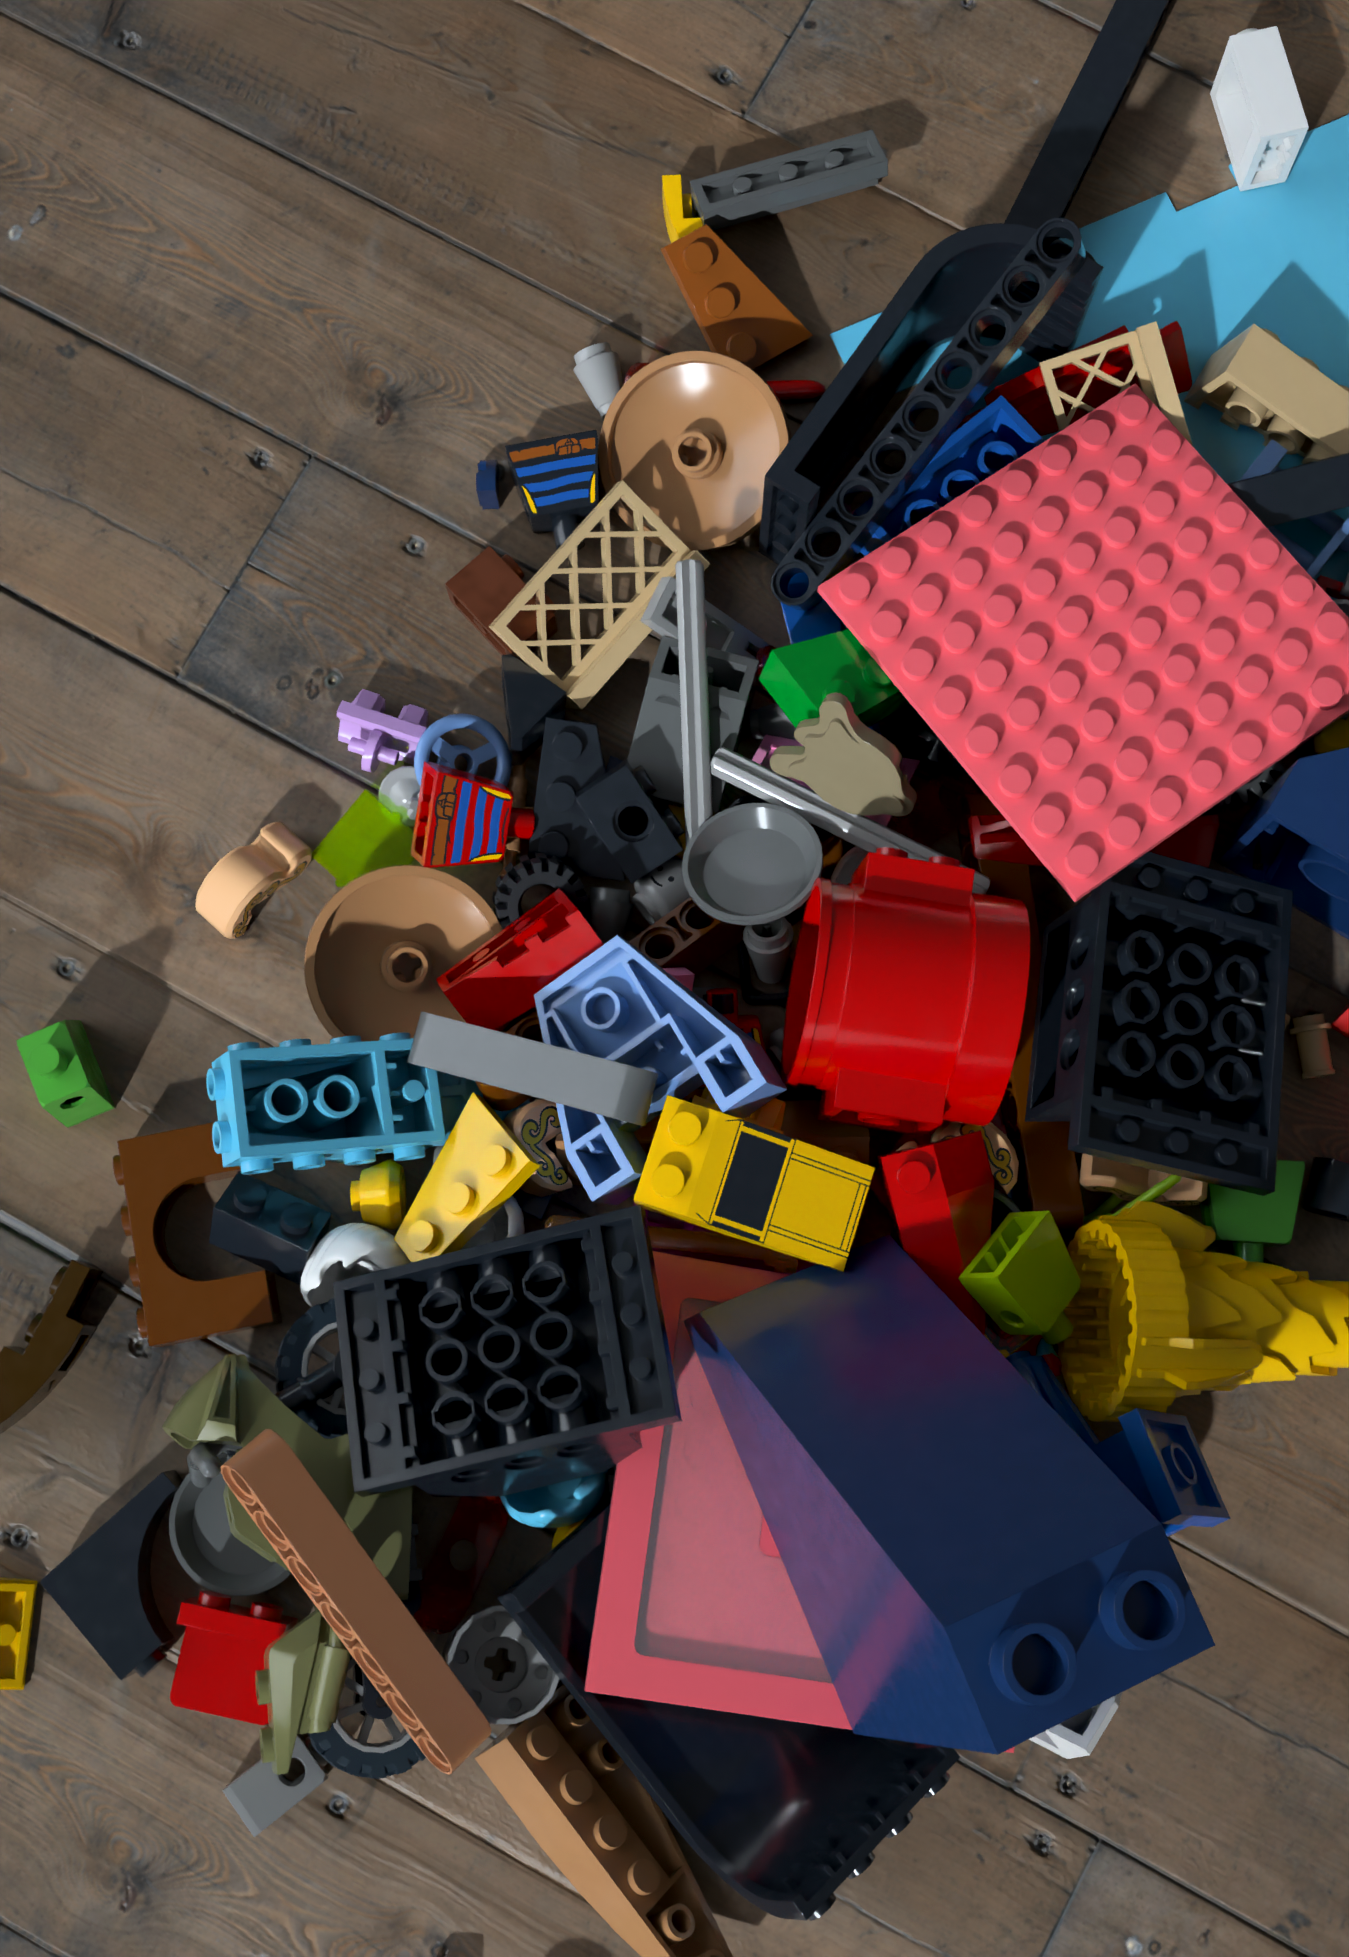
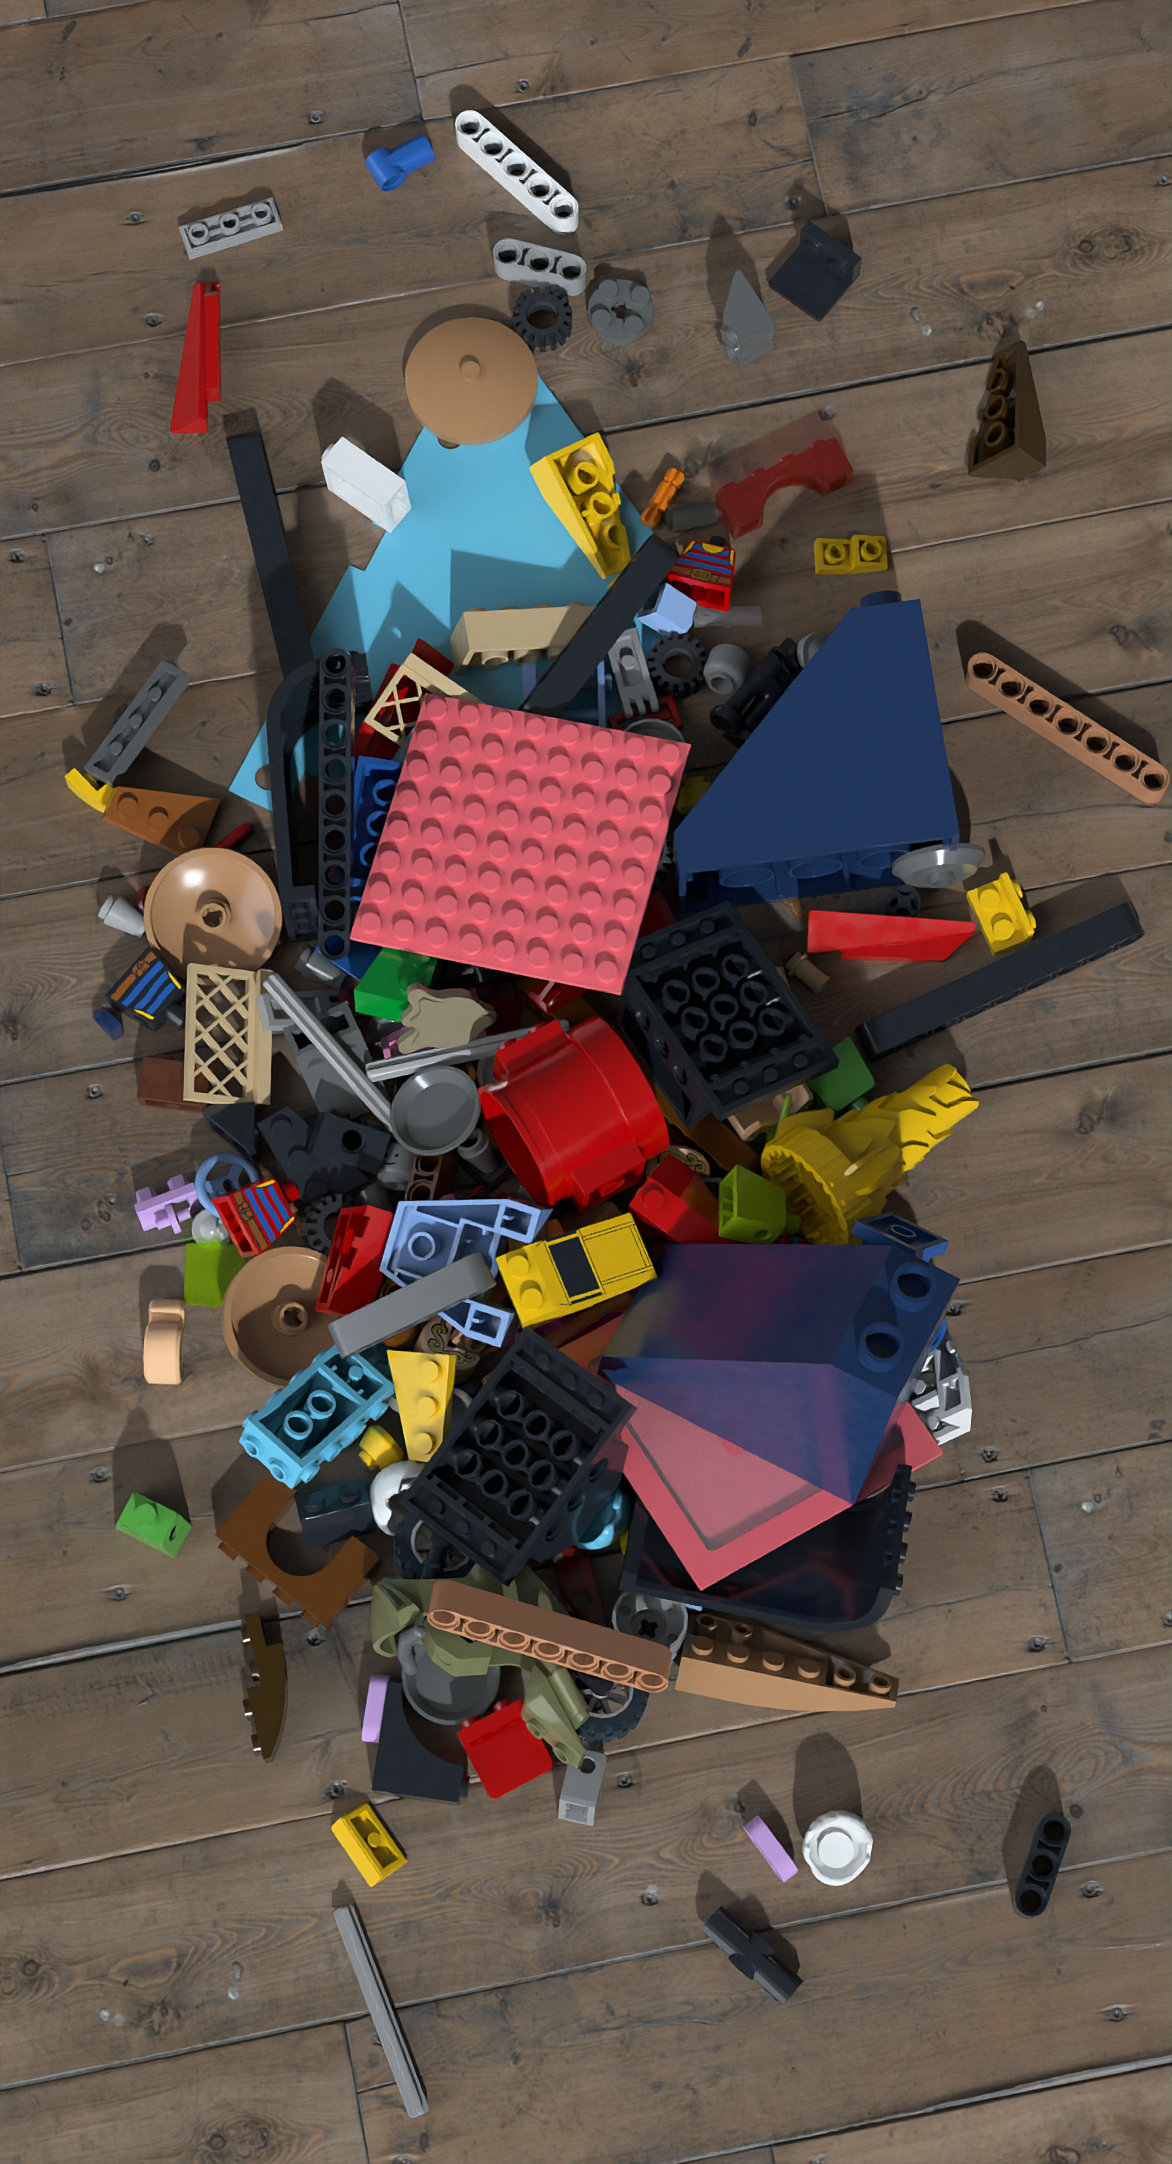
camera: 40 degrees left, 5 degrees down
(130, 1483) = (375, 1707): none -> lavender beam
(763, 605) = (319, 969): none -> dark grey cone

